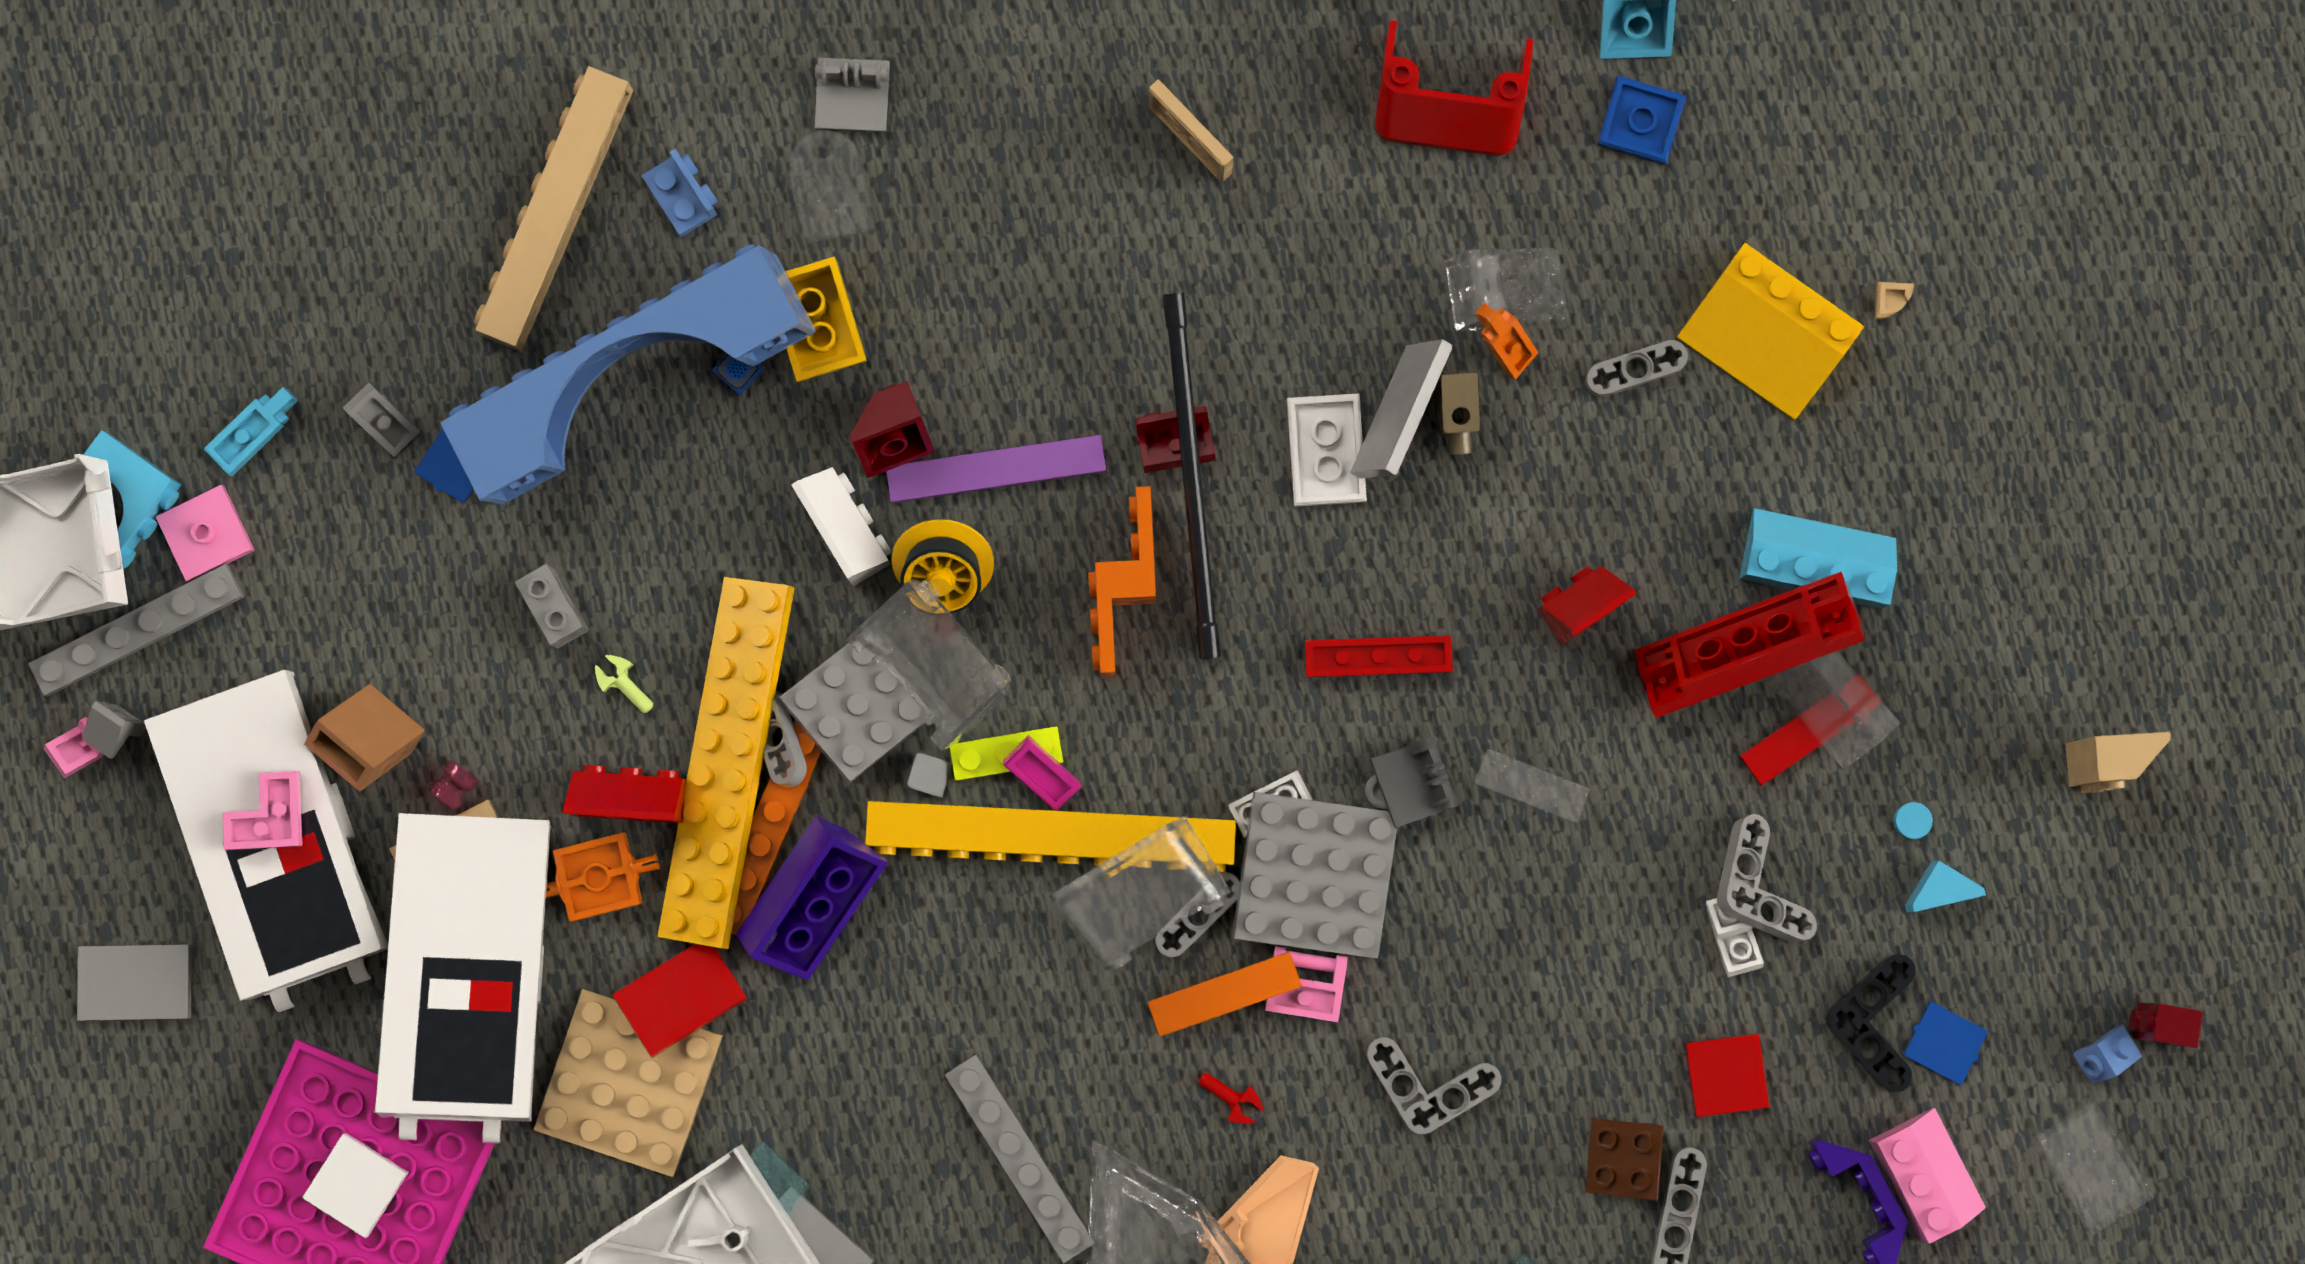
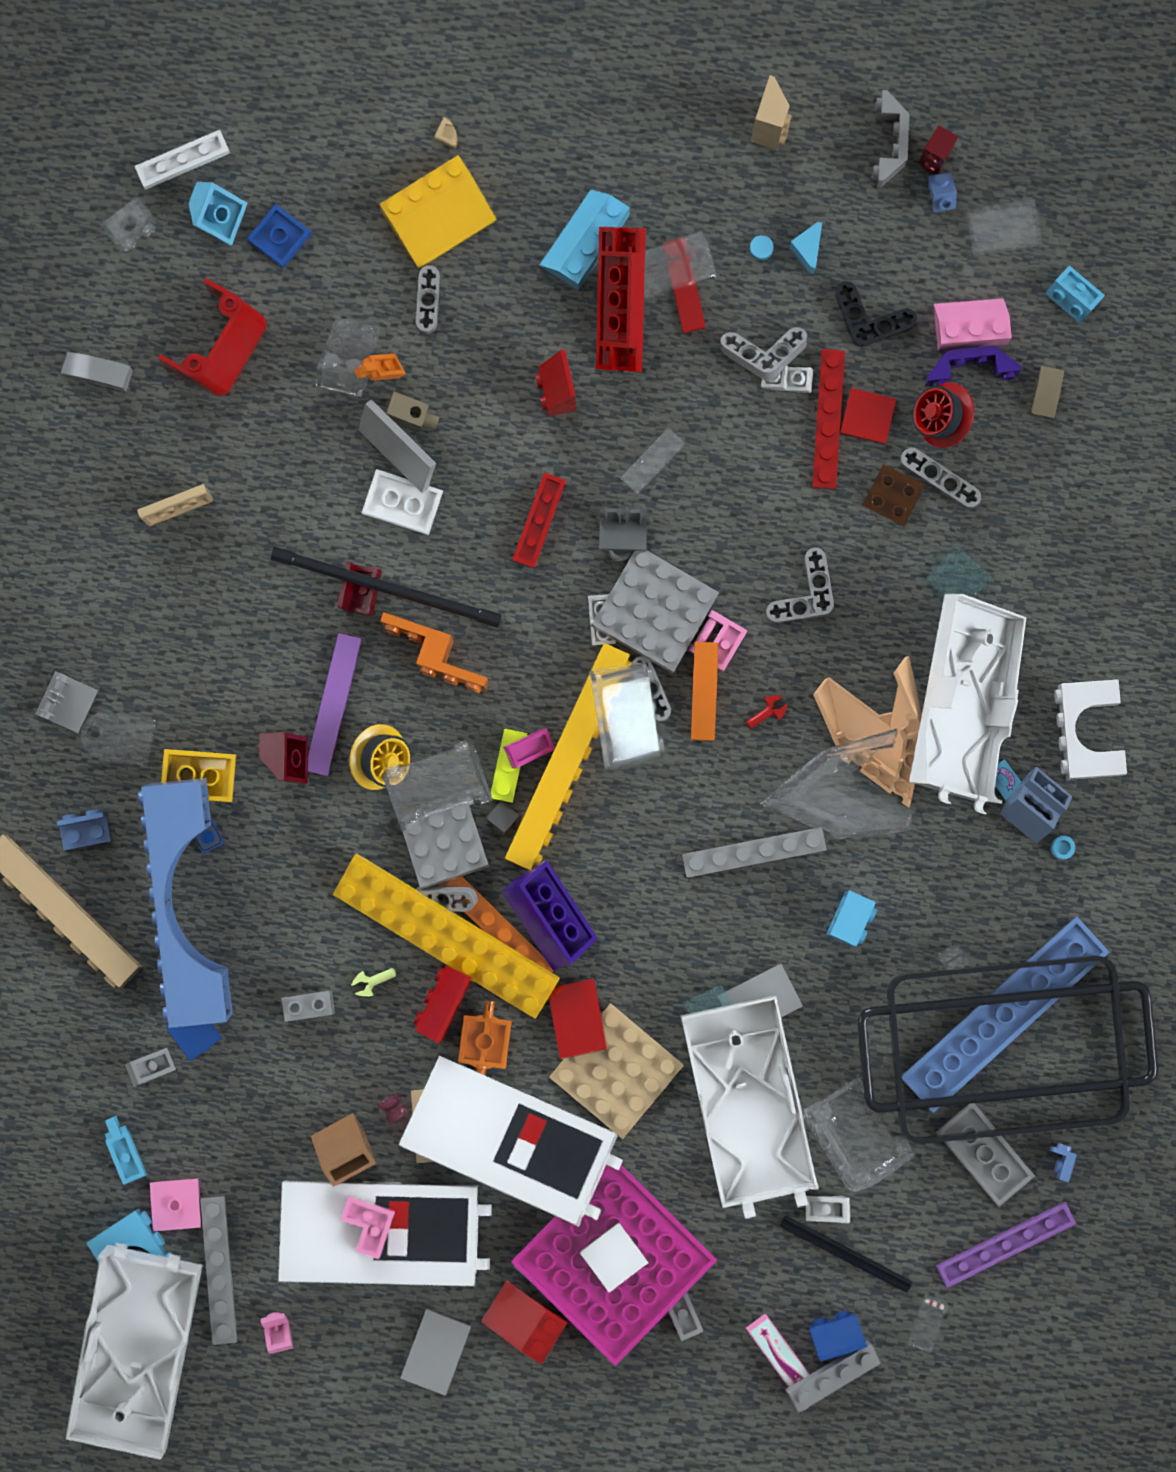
camera: 65 degrees left, 0 degrees up
(110, 727) = (274, 1306): light grey slope -> none
(221, 1092) = (524, 1322): none -> red slope
(843, 524) = (330, 809): white slope -> none
(1698, 1018) = (828, 419): none -> red plate
(1773, 1187) = (943, 414): none -> red piece
(1945, 1043) = (898, 282): blue piece -> none
(2198, 929) = (891, 109): none -> light grey slope

